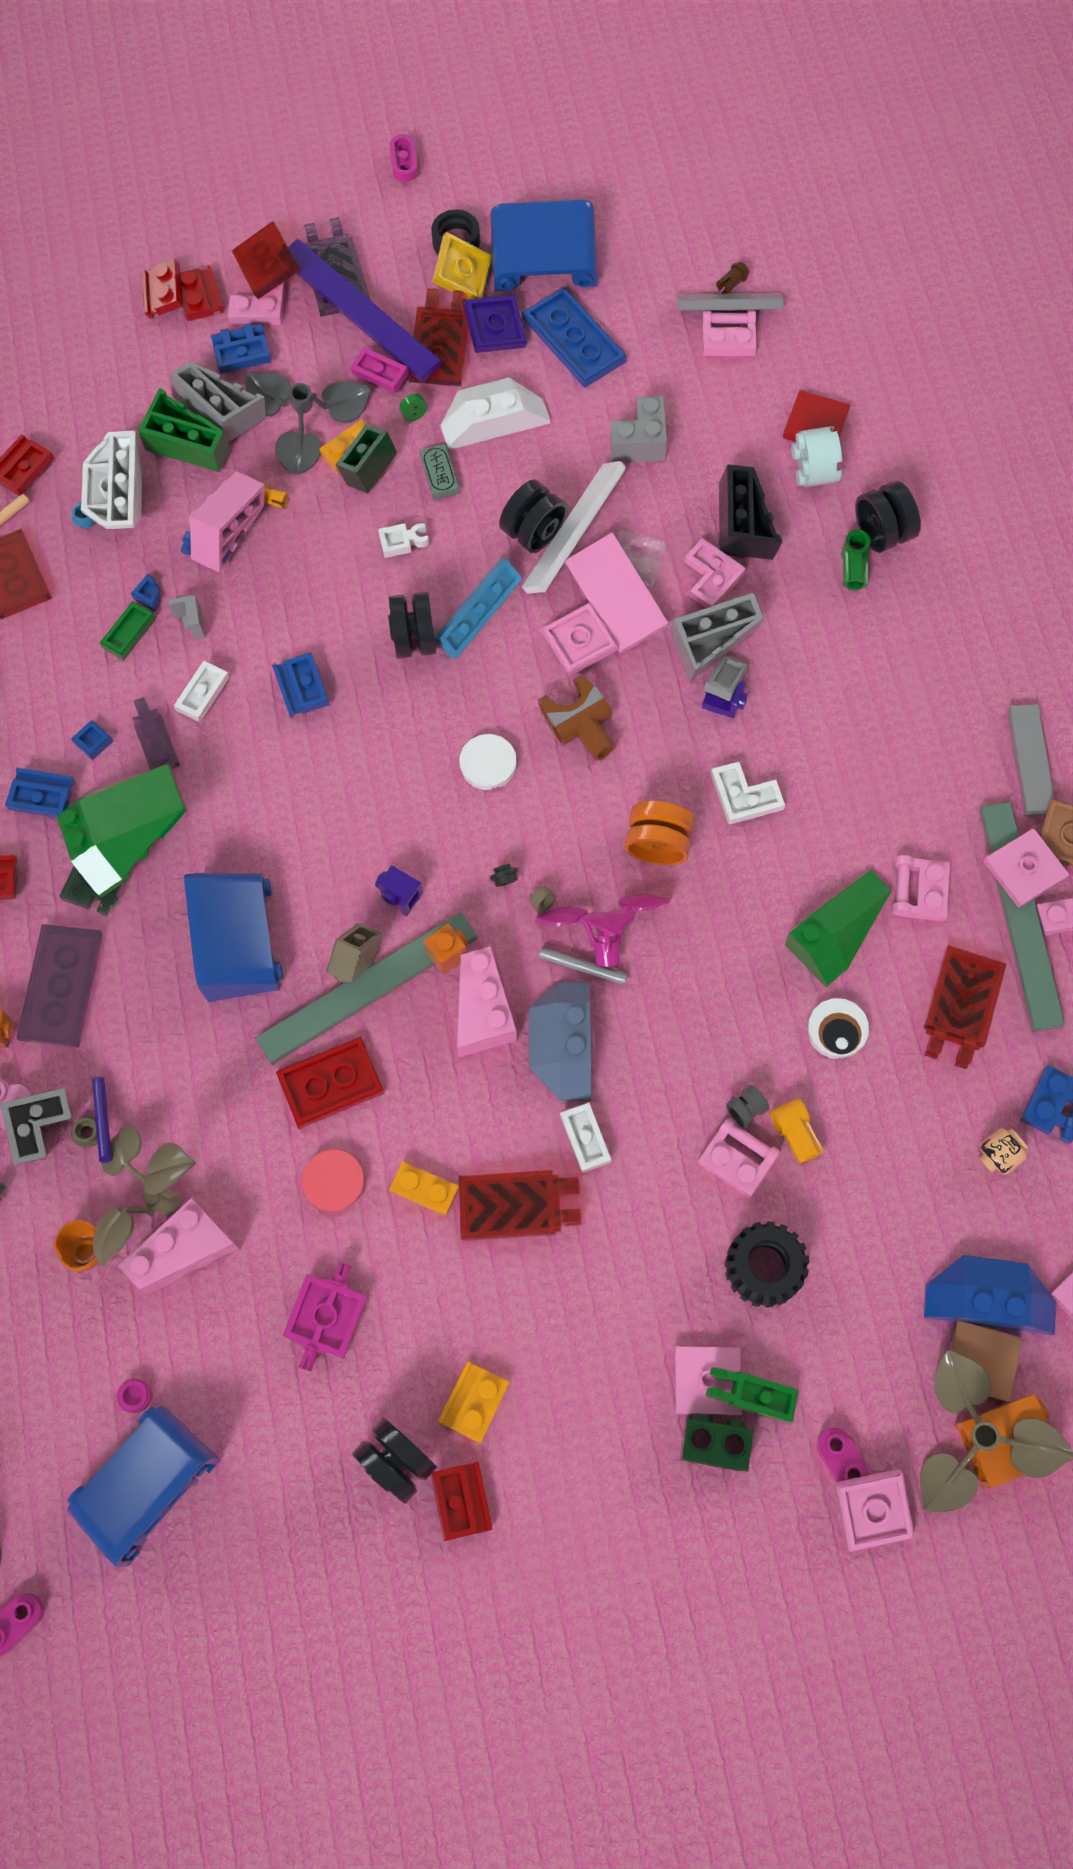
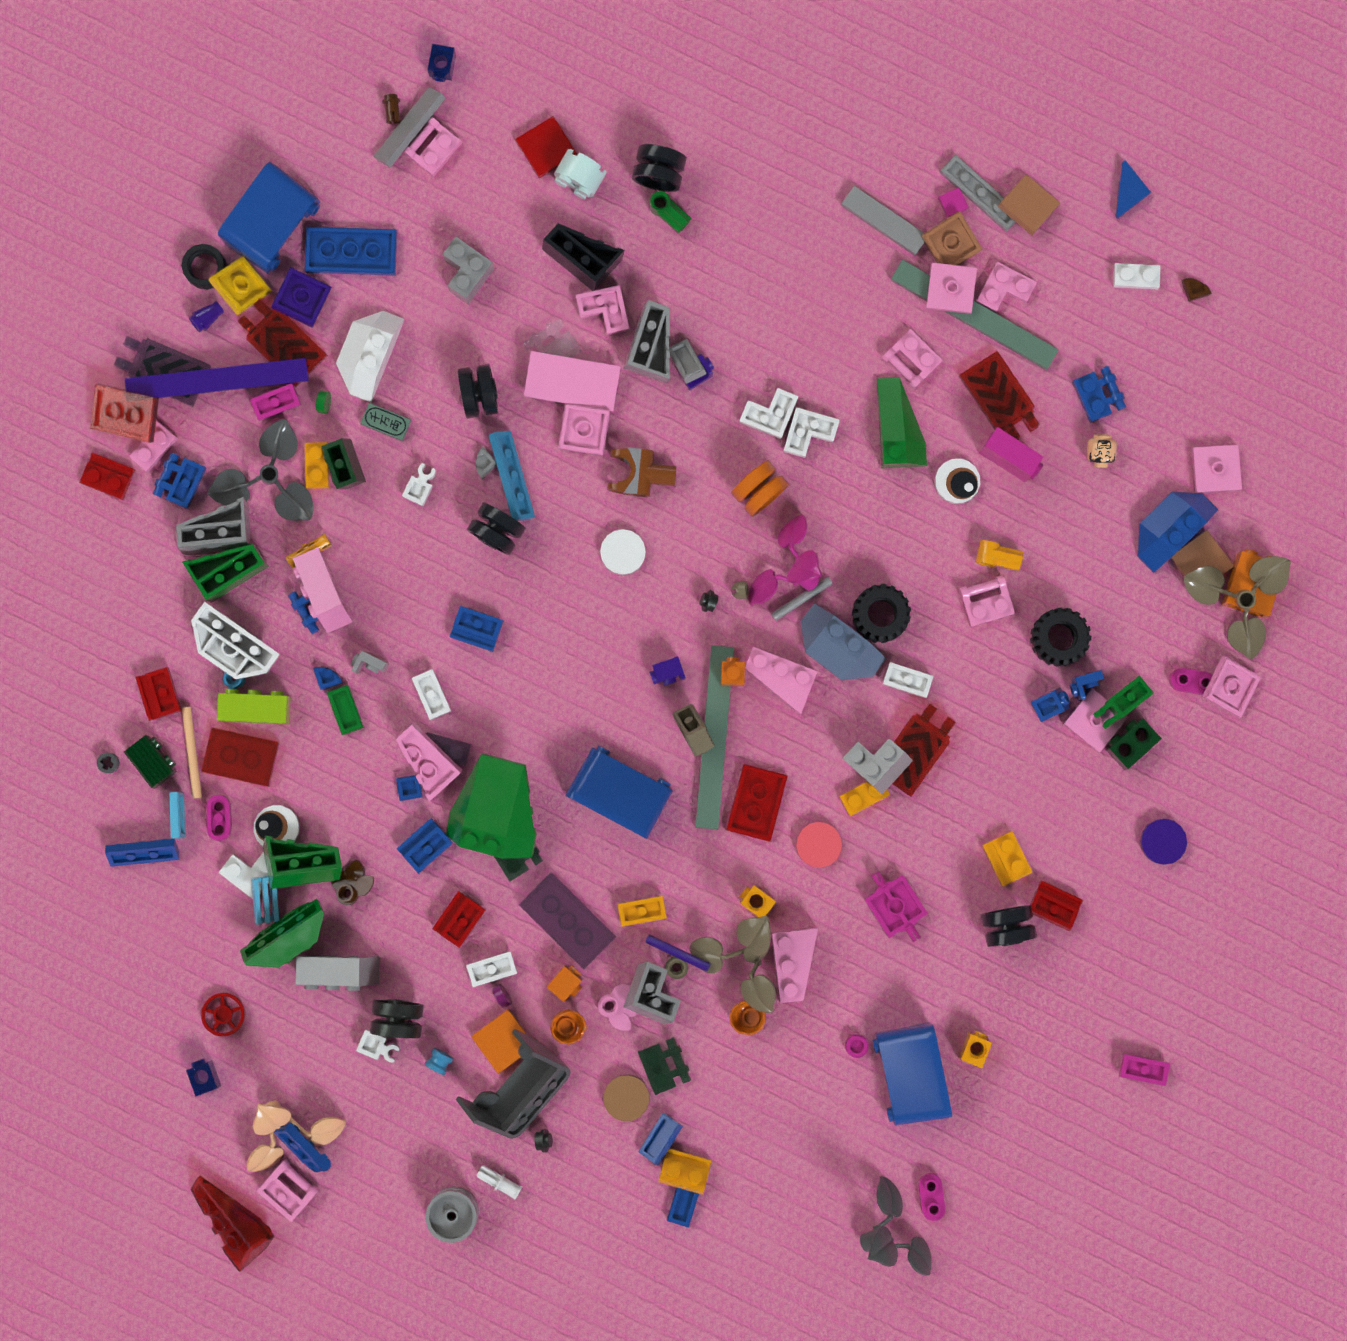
camera: 55 degrees left, 15 degrees up
(68, 549) = (253, 707): none -> lime brick
(123, 1050) = (642, 911): none -> light orange plate
(129, 733) = (431, 764): none -> bright pink wing
(162, 288) = (85, 499): plate -> none
(209, 1533) = (975, 1059): none -> light orange brick
(228, 1170) = (766, 905): none -> light orange brick
(344, 1772) = (1144, 1069): none -> dark pink plate
(403, 157) = (107, 250): dark pink plate -> none
(410, 266) = (204, 317): none -> dark purple cone
(464, 1175) = (881, 767): none -> light grey brick
(470, 579) = (484, 463): none -> light grey tile
(574, 527) = (501, 368): white tile -> none
(634, 1574) = (1163, 841): none -> dark purple tile
(637, 1029) = (889, 595): none -> black tyre
(685, 1314) = (1051, 704): none -> blue bracket
(745, 1334) = (1089, 680): none -> blue bracket
(747, 1106) = (962, 572): dark grey wheel -> none
(759, 835) = (808, 425): none -> white plate
(811, 285) = (441, 53): none -> clear blue brick
(913, 1056) = (1012, 455): none -> dark pink brick

